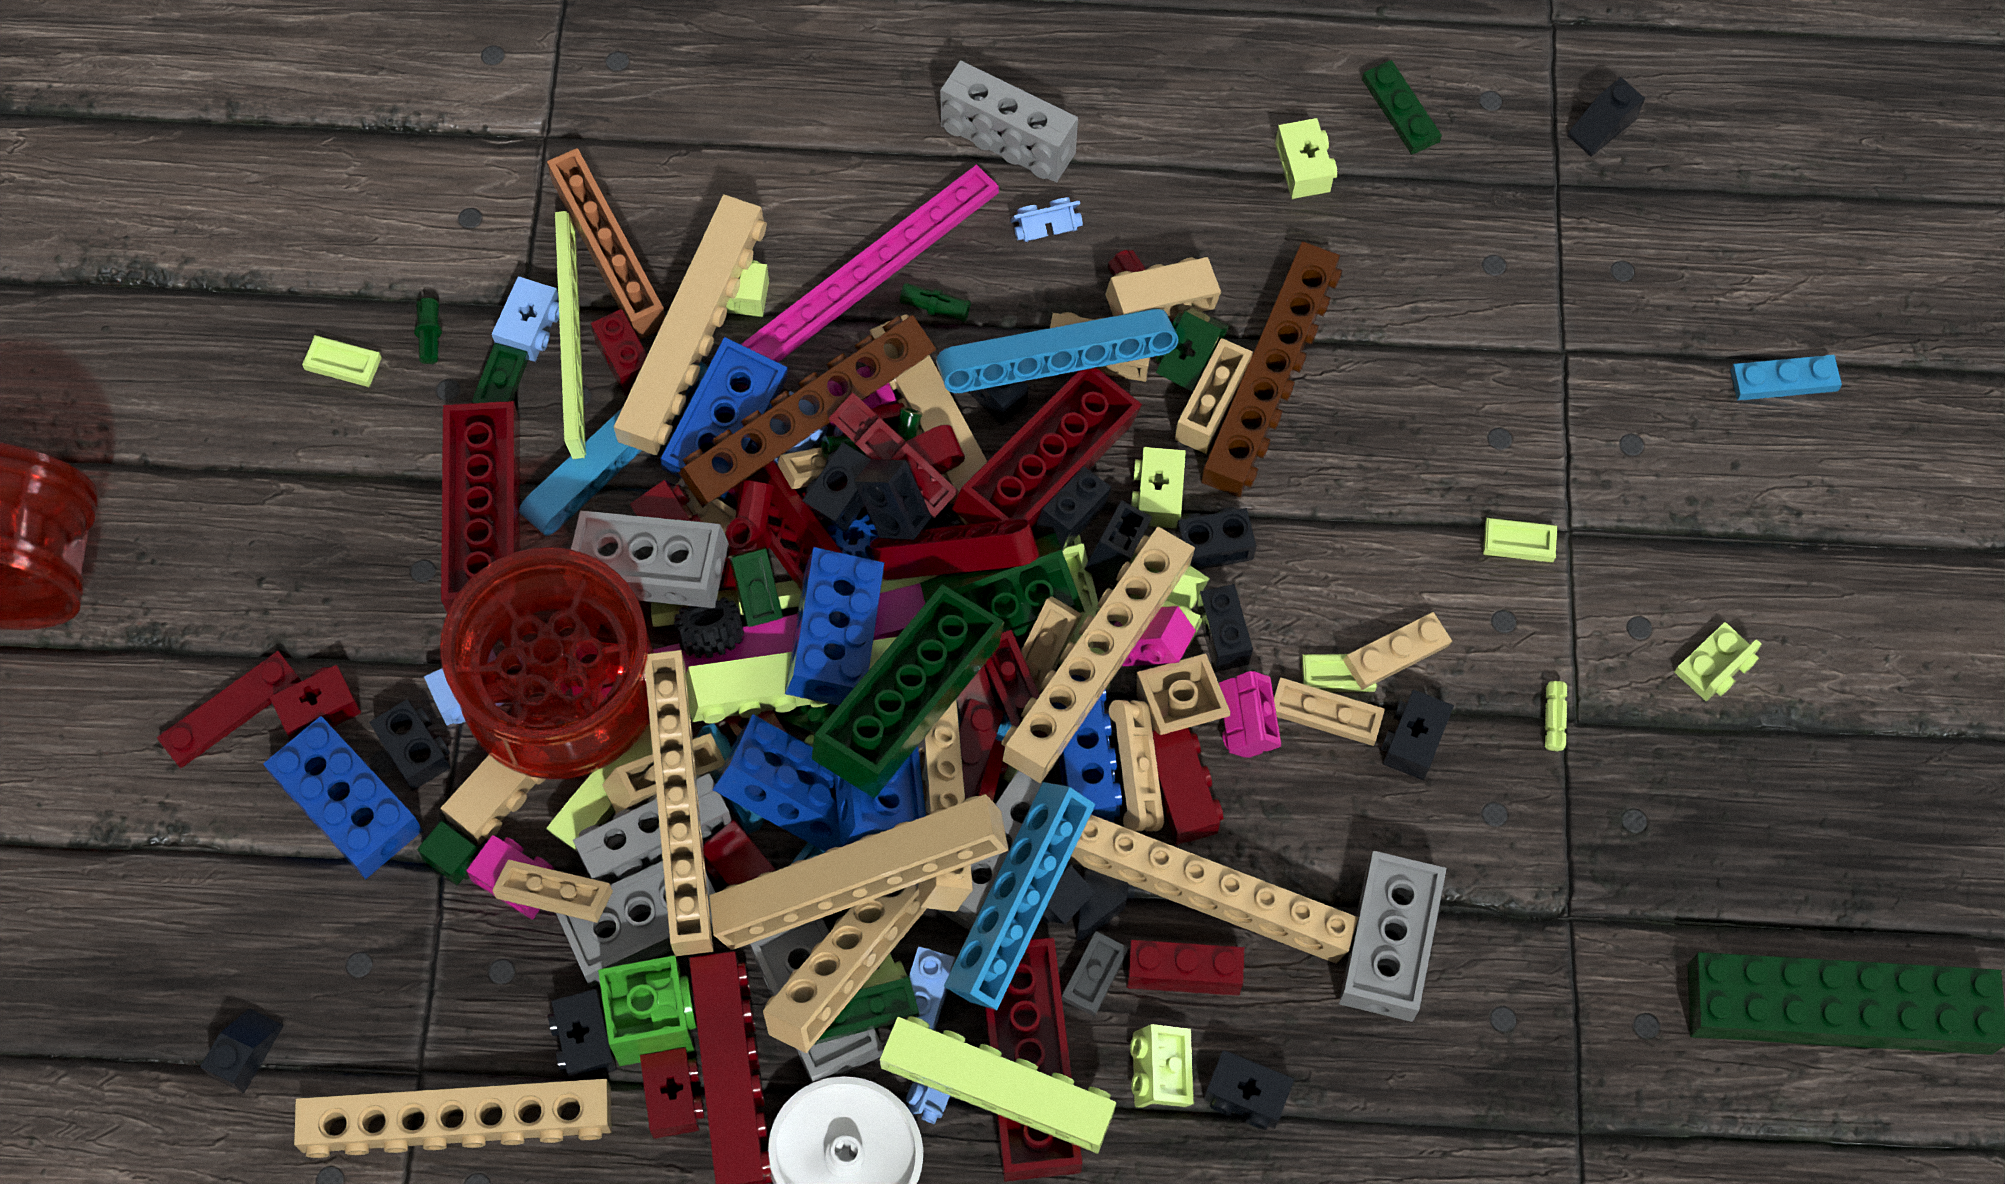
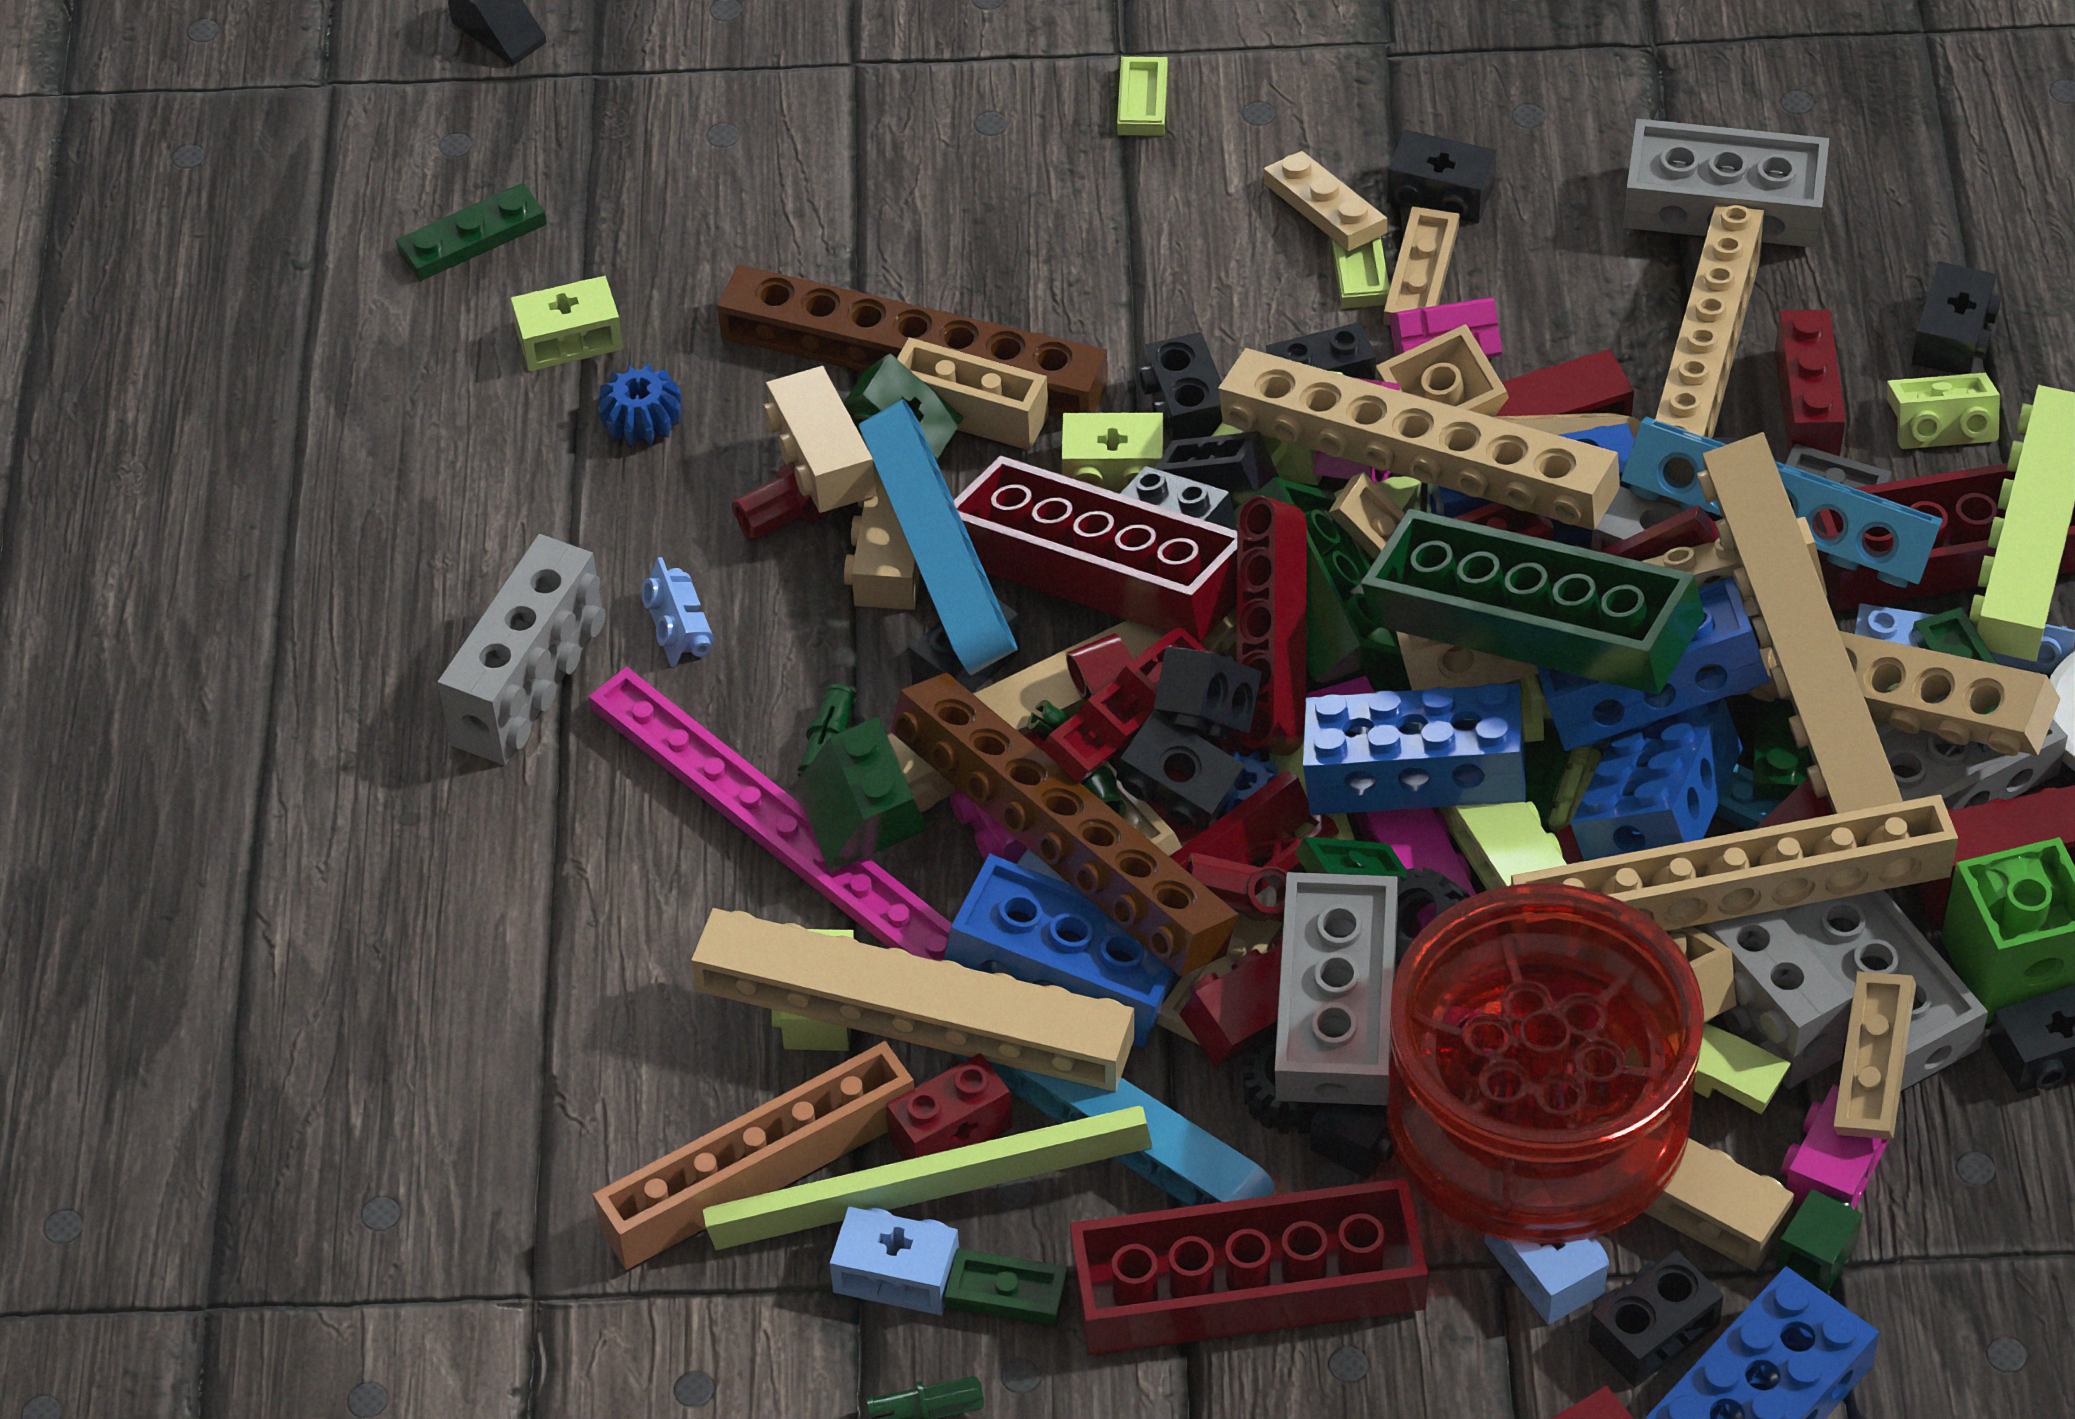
camera: 90 degrees left, 15 degrees down
(858, 308) = (858, 796): none -> dark green slope
(1227, 200) = (639, 404): none -> blue gear
(1556, 716) = (1388, 55): yellowish green axle -> none

